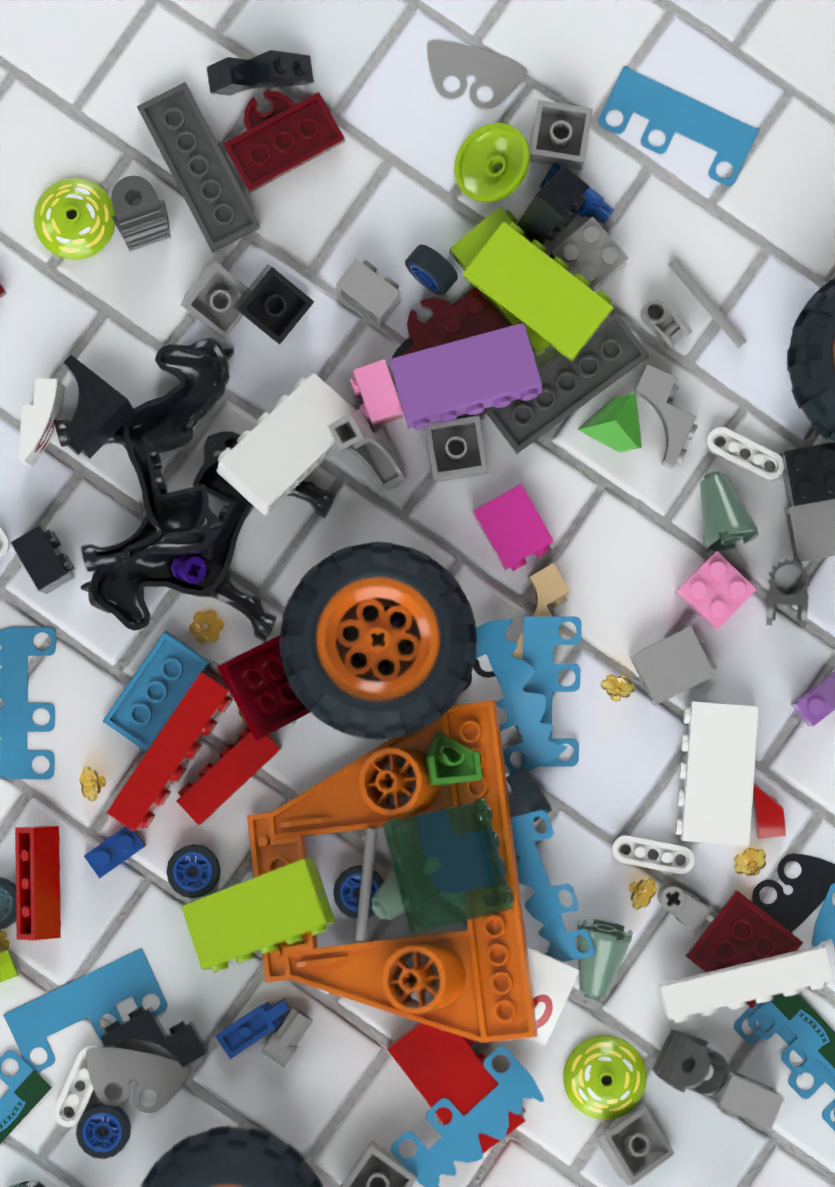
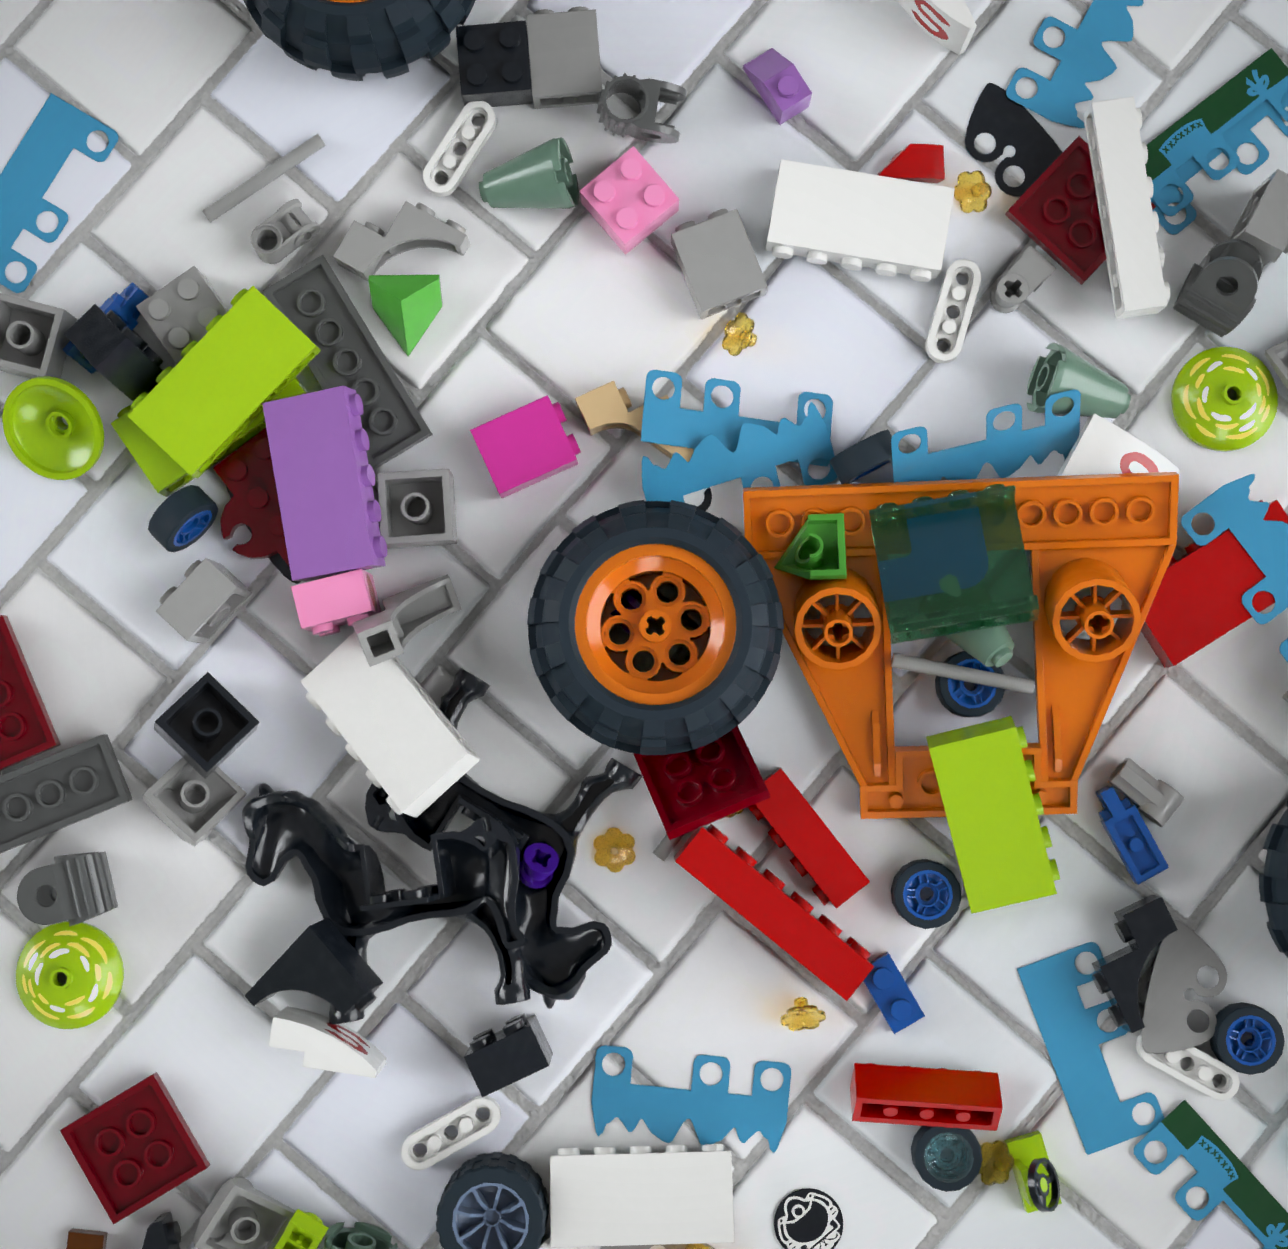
camera: 80 degrees left, 0 degrees up
(155, 690) = (692, 921): dark azure tile -> none
(642, 893) = (999, 329): clear yellow plant -> none

